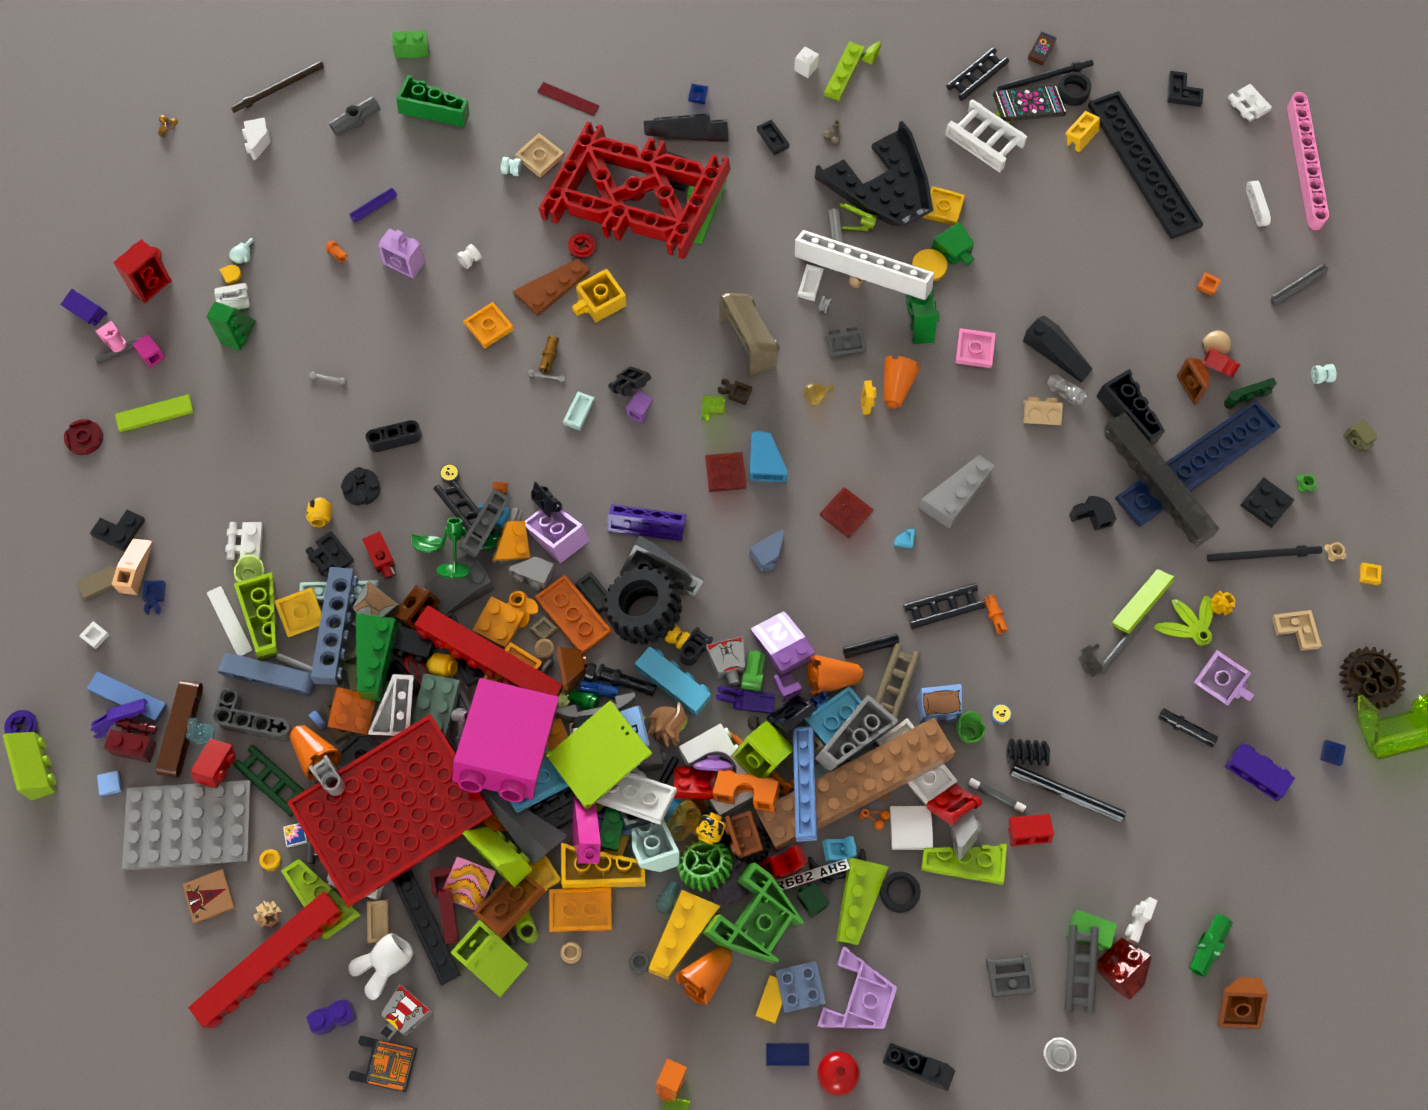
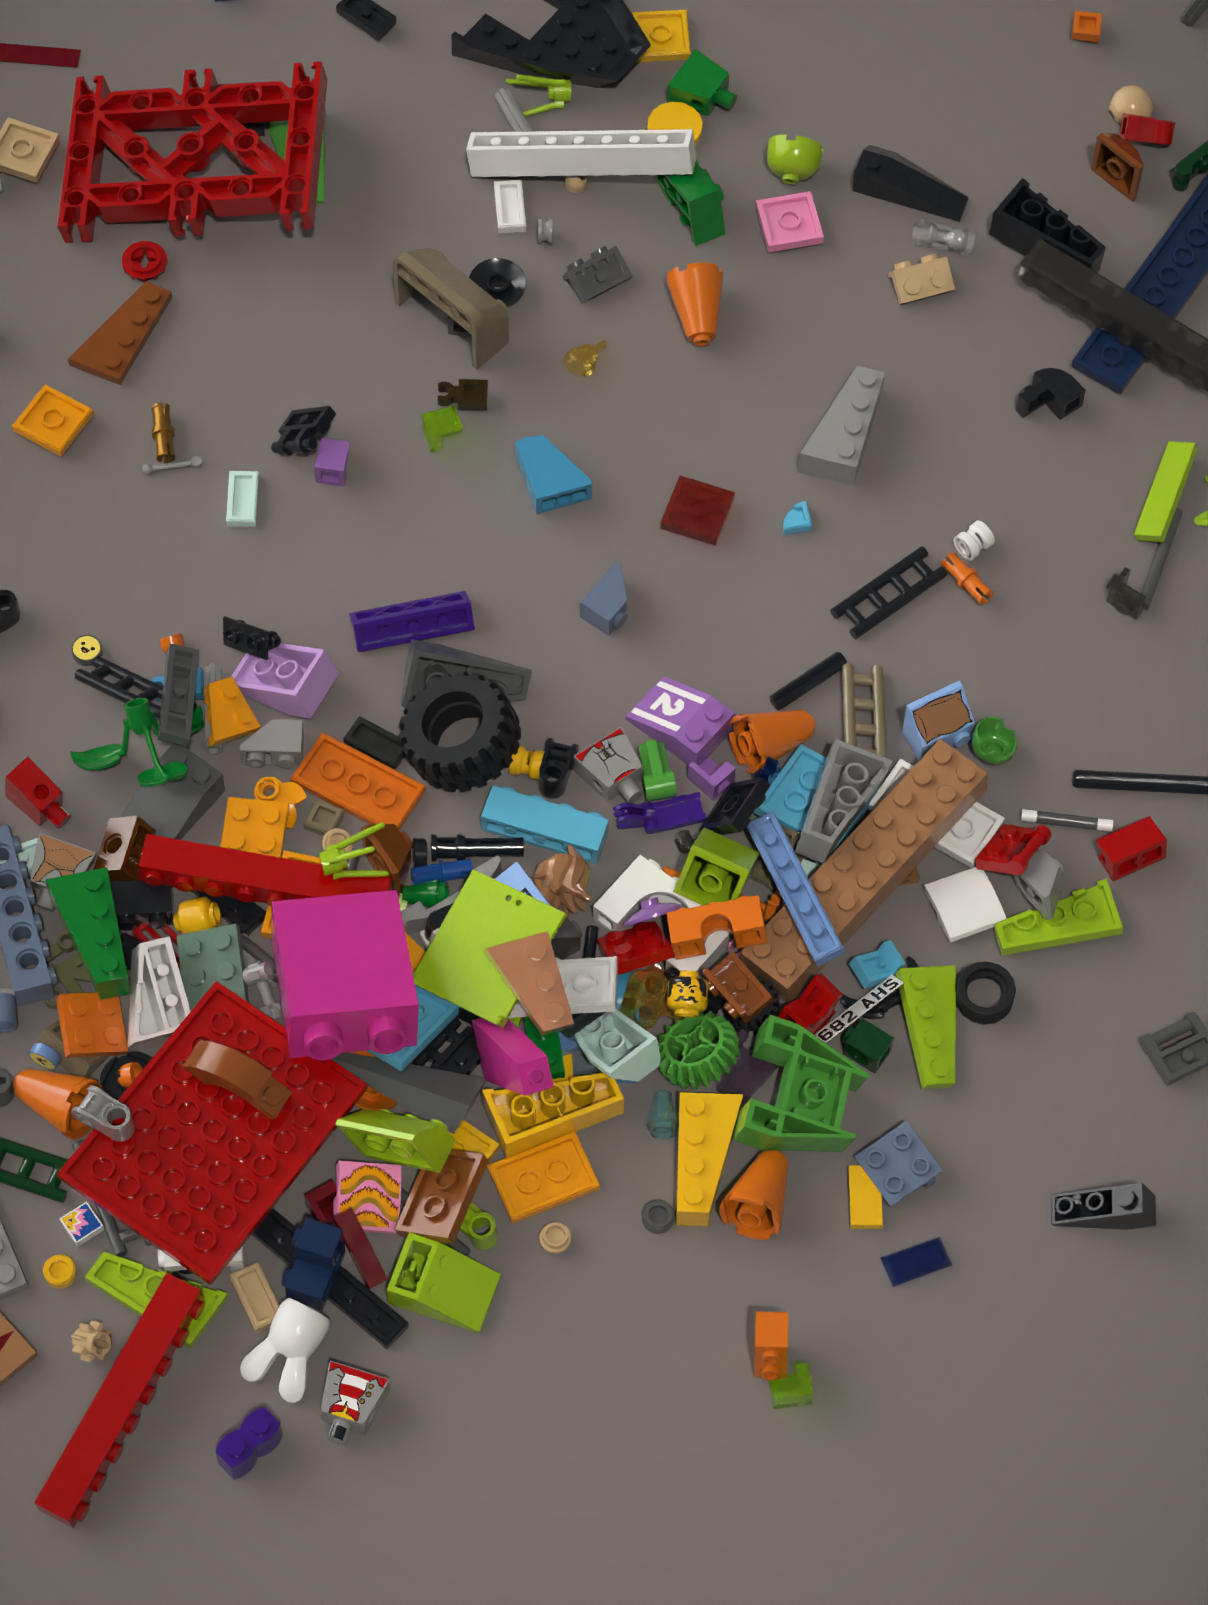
camera: 20 degrees left, 5 degrees down
(363, 749) = (128, 1073): none -> orange hinge
(388, 1064) = (357, 1480): flag -> none
(414, 783) = (239, 1074): none -> dark orange arch
(416, 918) = (318, 1259): none -> dark blue brick
(531, 663) = (334, 859): none -> lime plant
(599, 296) = (205, 324): yellow hinge -> none
(614, 790) = (535, 980): none -> nougat wedge
(688, 127) = (232, 38): black wedge -> none
(725, 471) = (498, 512): clear red plate -> none
(783, 321) = (503, 274): none -> black dish
(838, 1073) = (996, 1258): red cylinder -> none
(867, 397) = (663, 338): yellow plate -> none
(868, 1001) = (999, 1149): lavender wing -> none
(878, 824) = (918, 915): orange piece -> none
(993, 310) = (794, 159): none -> lime cylinder
(1001, 714) = (1029, 710): light yellow tile -> none
(1009, 591) = (974, 540): none -> white wheel
(1028, 751) = (1086, 744): black piece -> none

